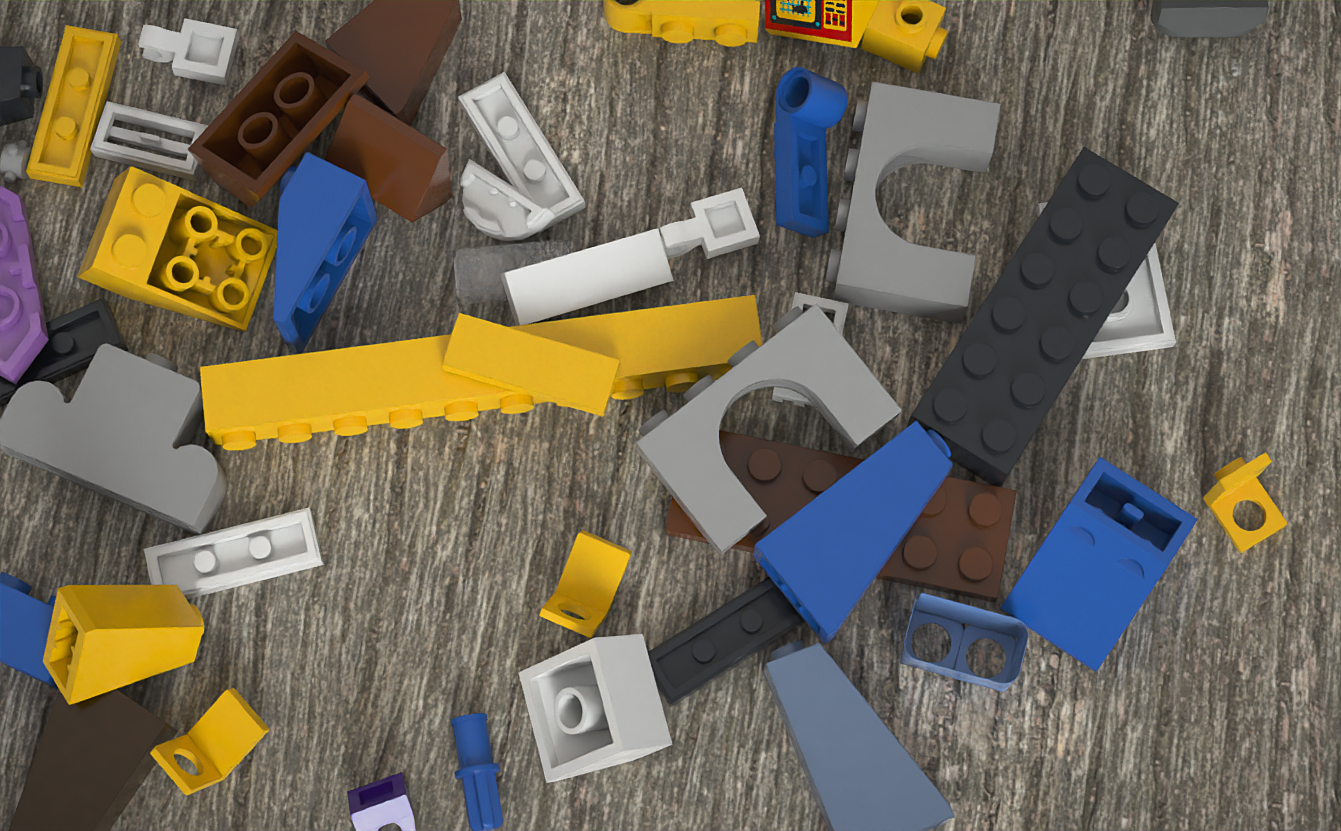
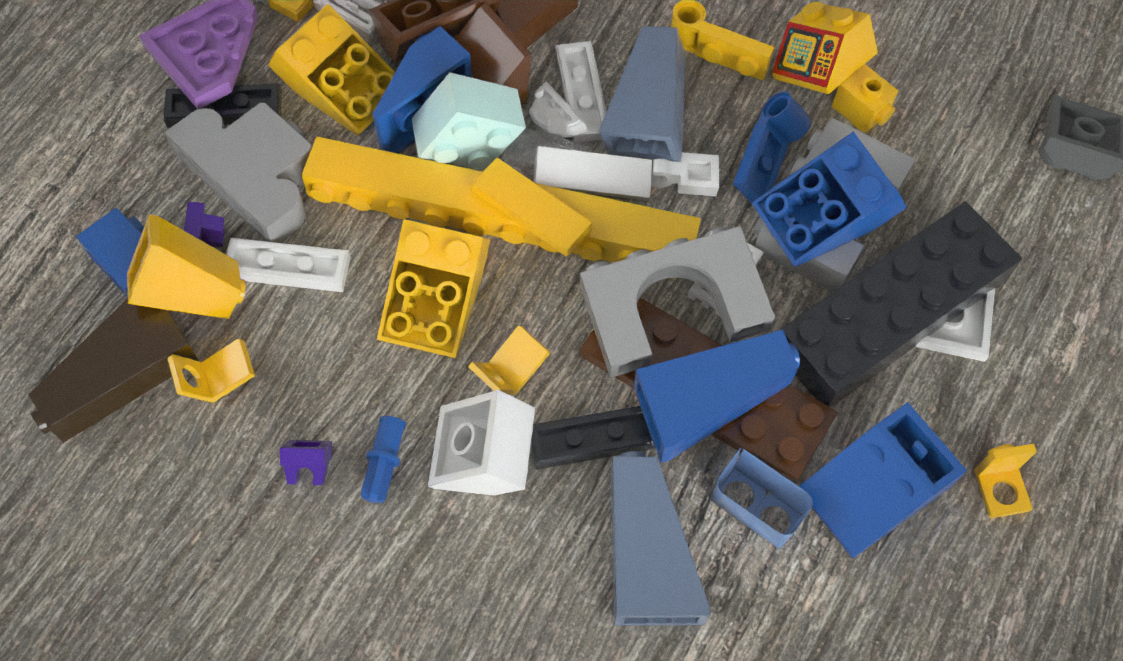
camera: 20 degrees right, 10 degrees down
(102, 553) = (204, 226): none -> dark purple tile
(399, 276) = (467, 122): none -> light aqua brick
(443, 517) = (432, 288): none -> yellow slope
(620, 140) = (649, 99): none -> sand blue slope
(912, 217) = (829, 202): none -> blue slope

